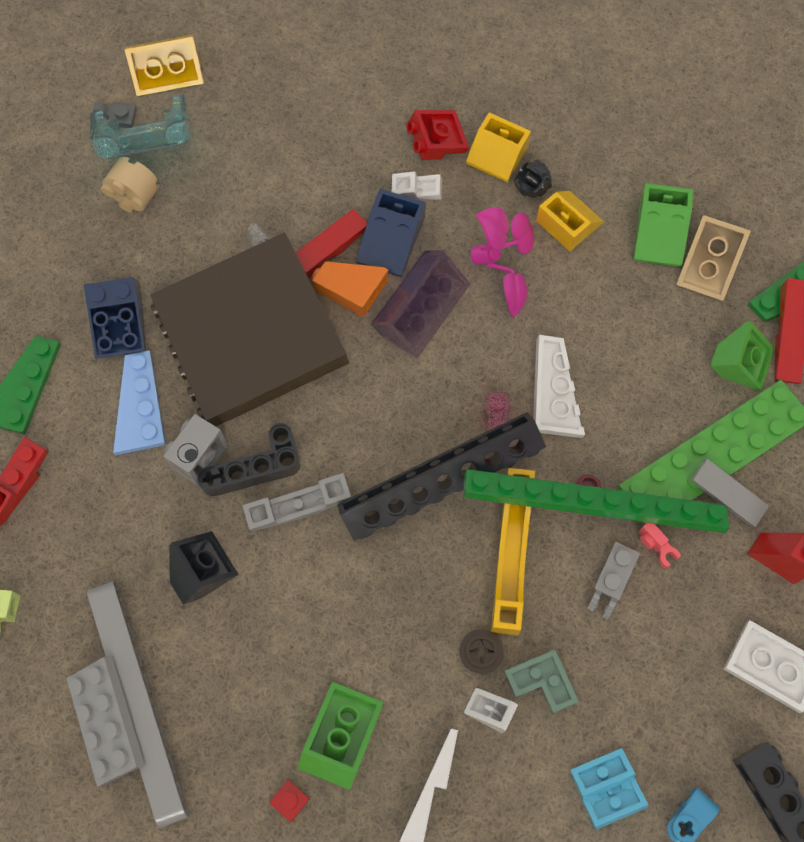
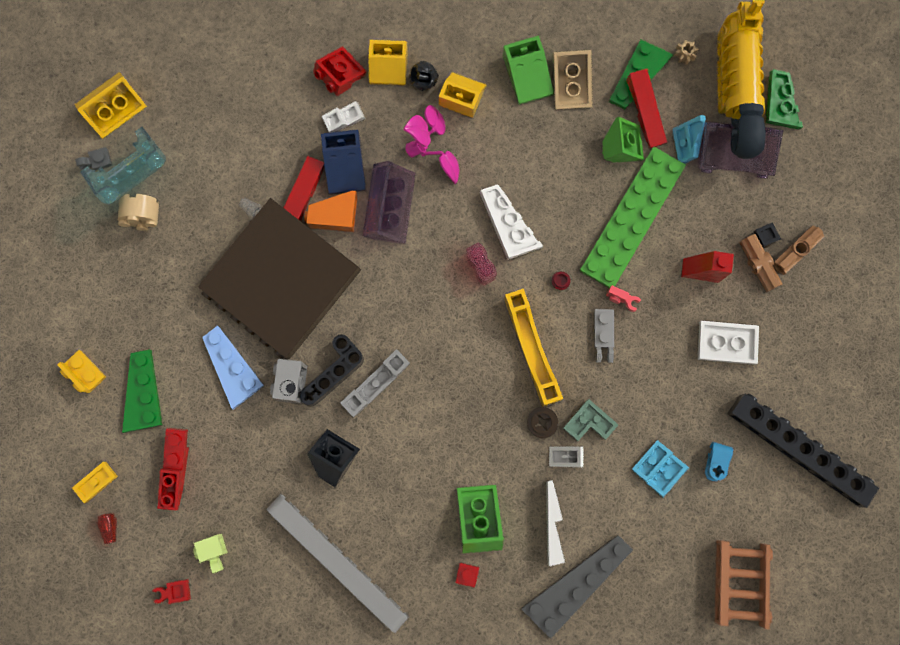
camera: 25 degrees left, 10 degrees up
(105, 721) = (324, 585): light grey plate -> none
(115, 317) = (181, 314): dark blue slope -> none
(426, 474) = (464, 311): black brick -> none
(595, 501) = (570, 290): green plate -> none
(729, 493) = (653, 242): light grey tile -> none

